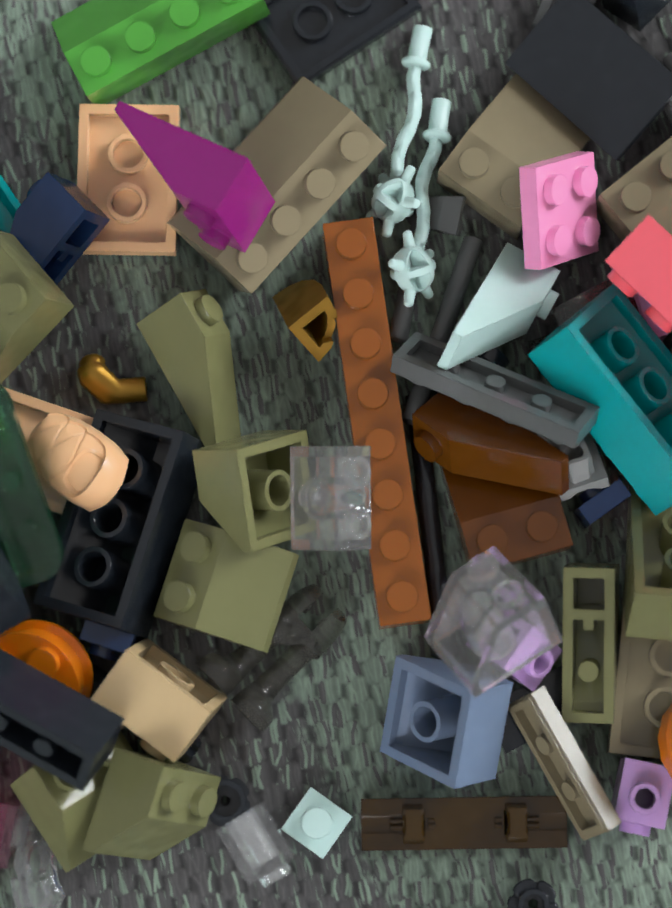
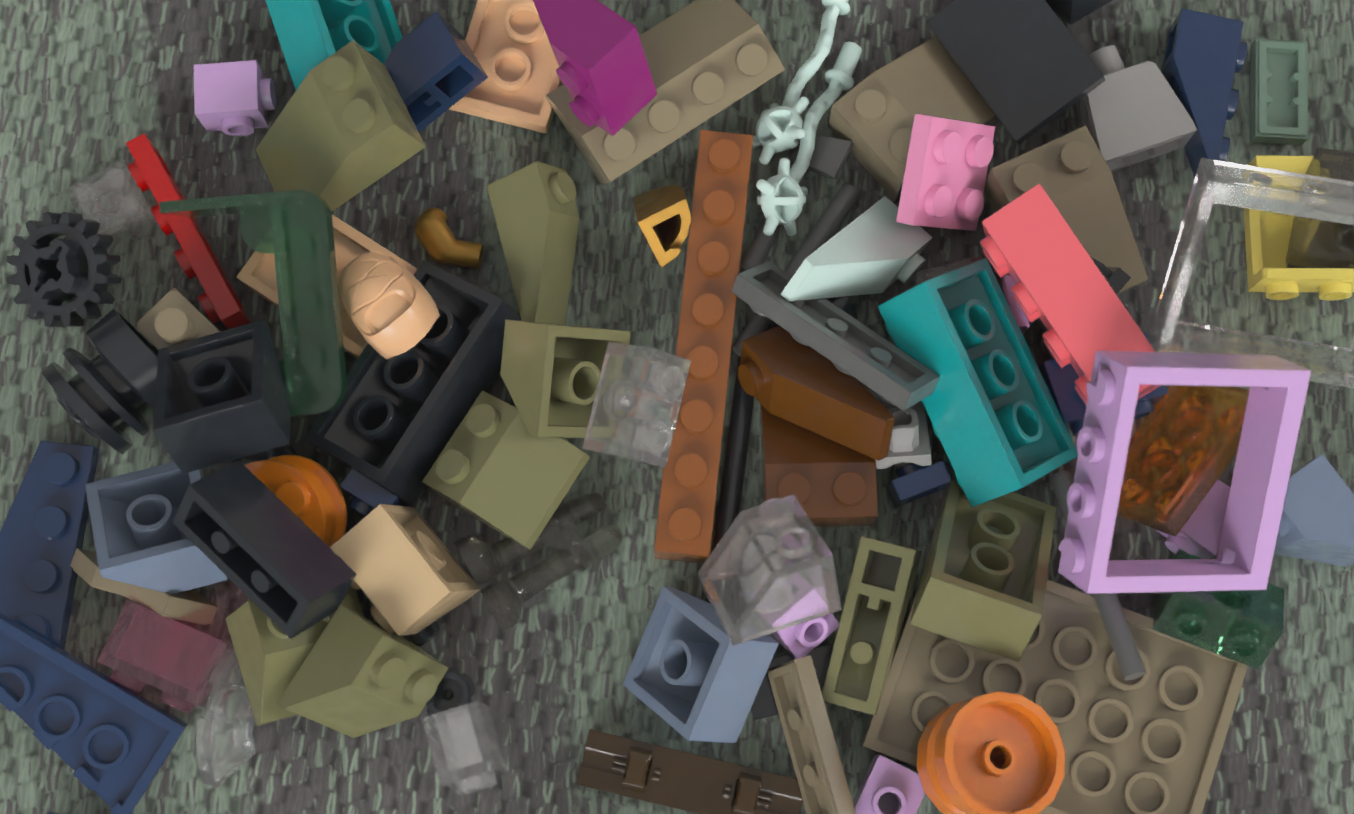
camera: 15 degrees right, 5 degrees down
(316, 822) = (537, 742): light aqua plate -> none

